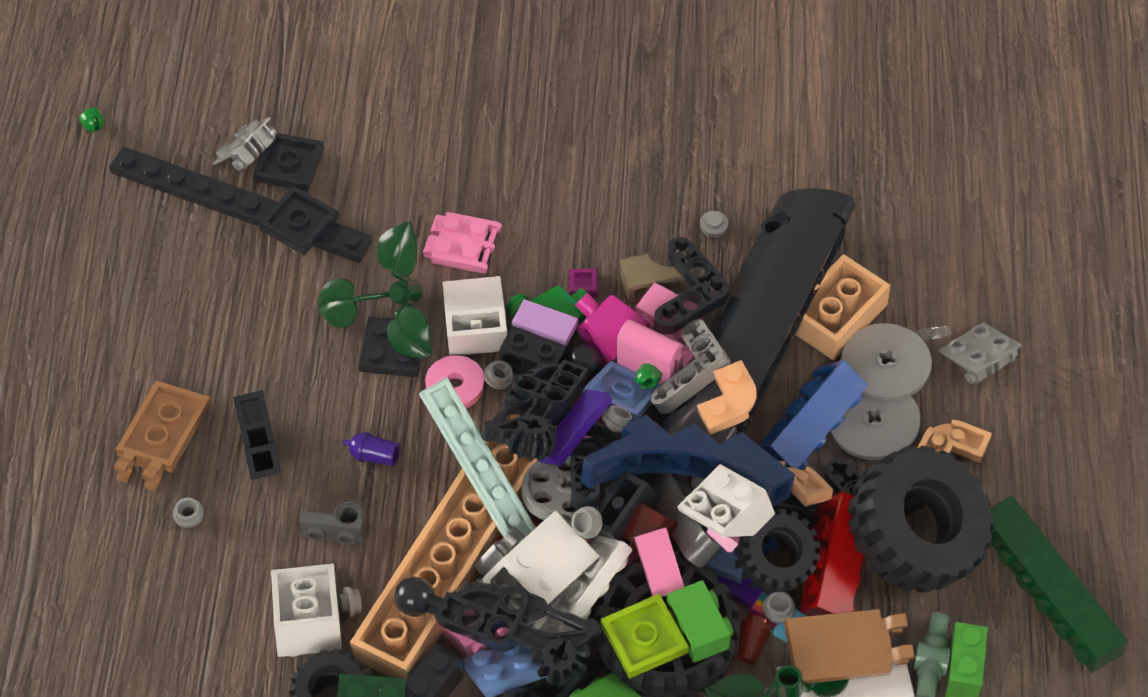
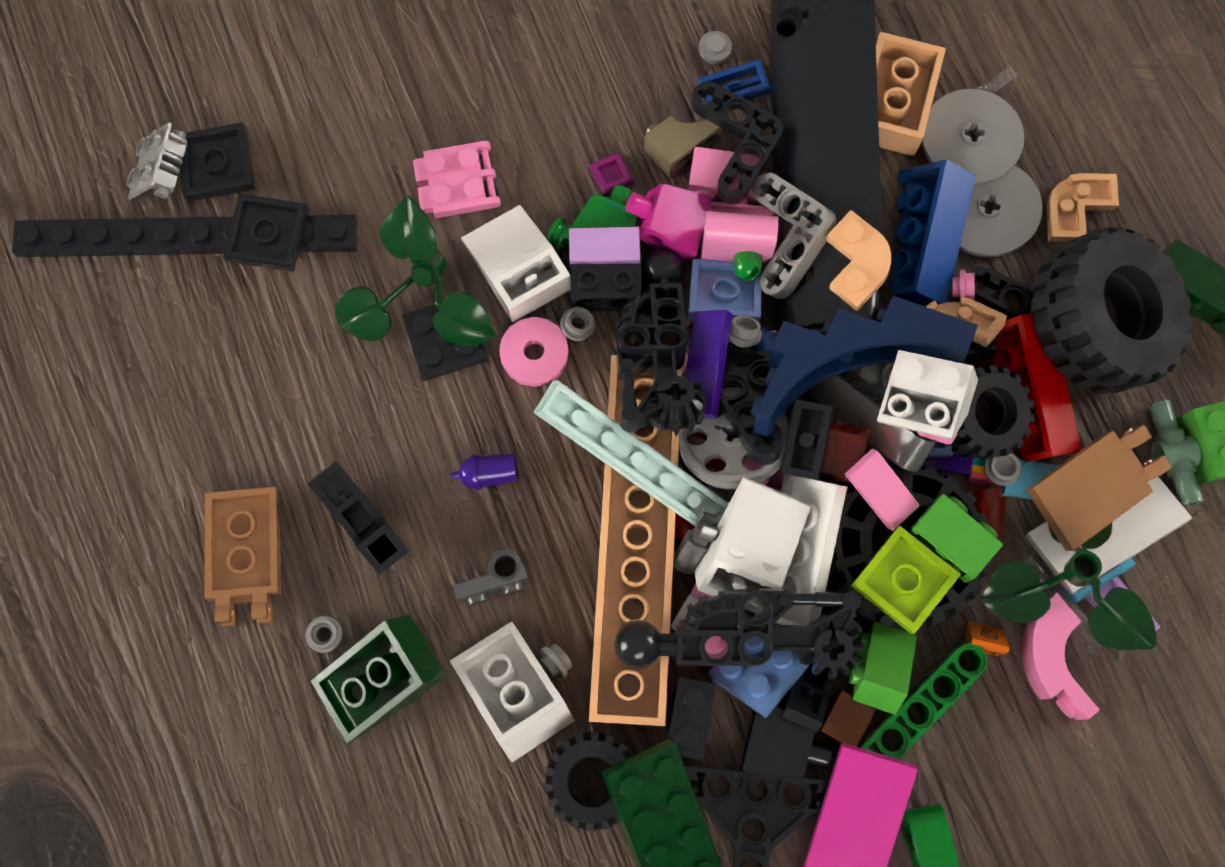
camera: 25 degrees left, 20 degrees up
(212, 556) = (378, 677): none -> dark green slope
(587, 522) = (784, 477): light grey plate -> none
(722, 263) = (738, 71): none -> blue tile
(818, 461) = (964, 285): none -> bright pink plate
(981, 351) = (1057, 82): light grey hinge -> none

